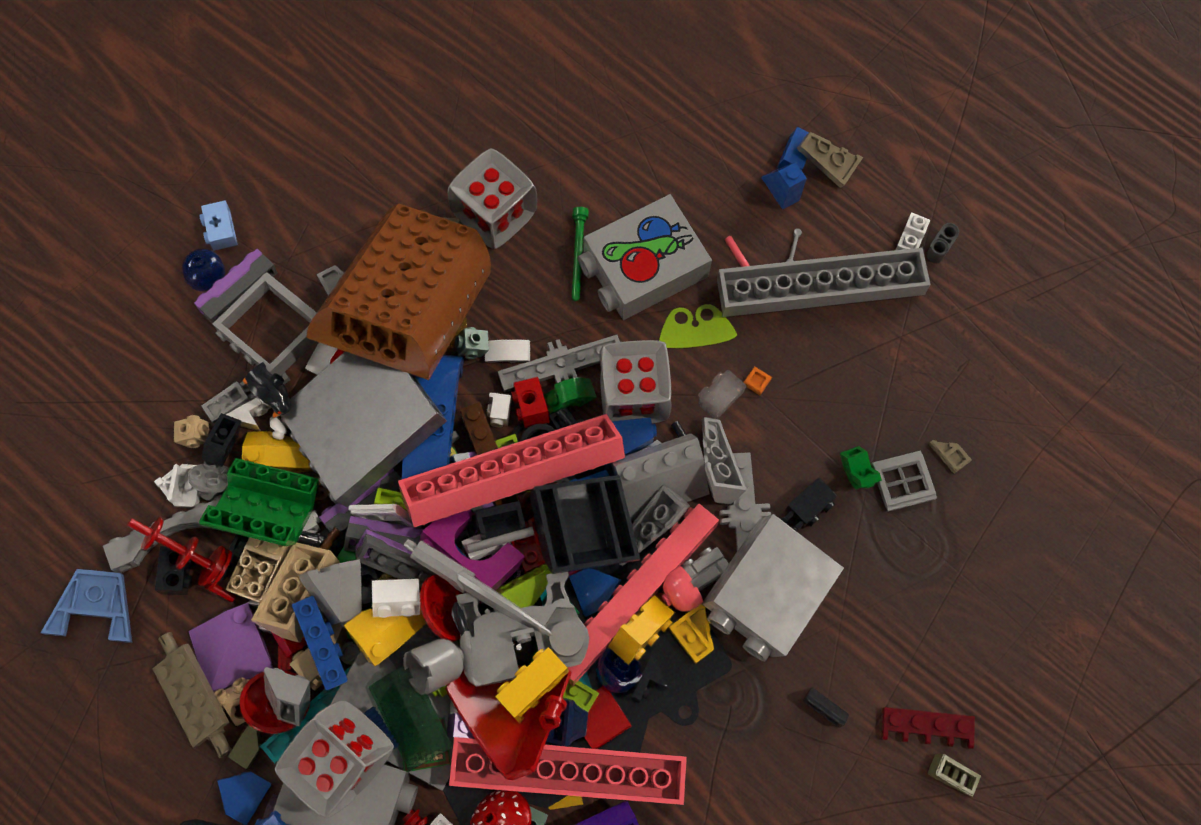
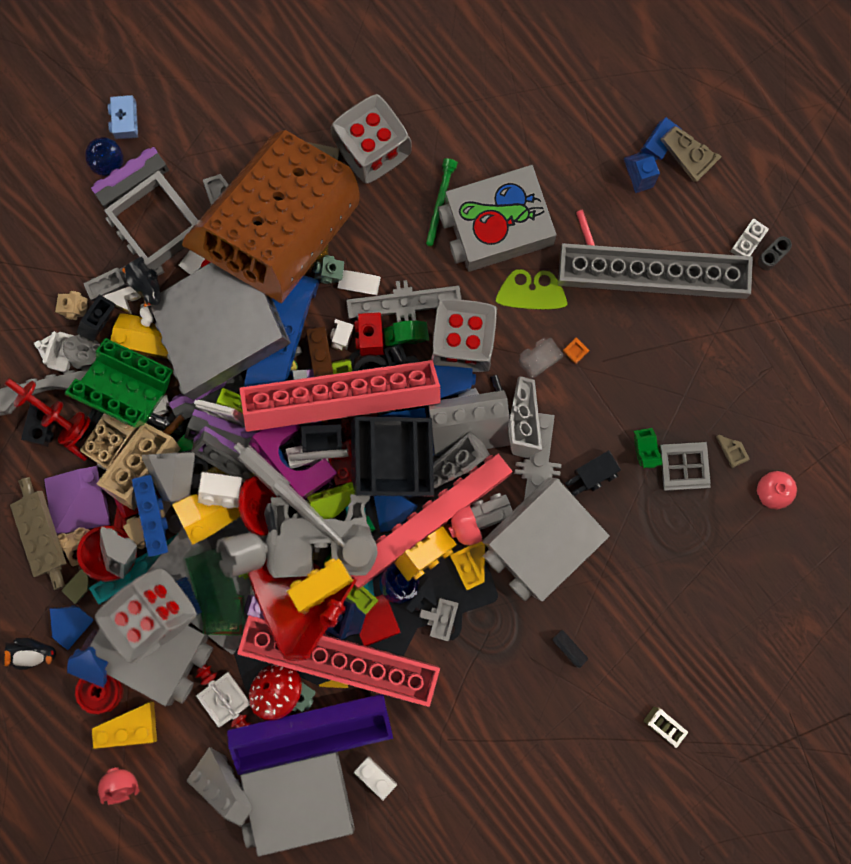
camera: 15 degrees right, 10 degrees up
(674, 701) = (441, 619): none -> light grey hinge
(797, 233) = (644, 218): light grey hinge -> none
(928, 724) = (653, 680): dark red hinge -> none
(1009, 487) = (777, 490): none -> coral cylinder

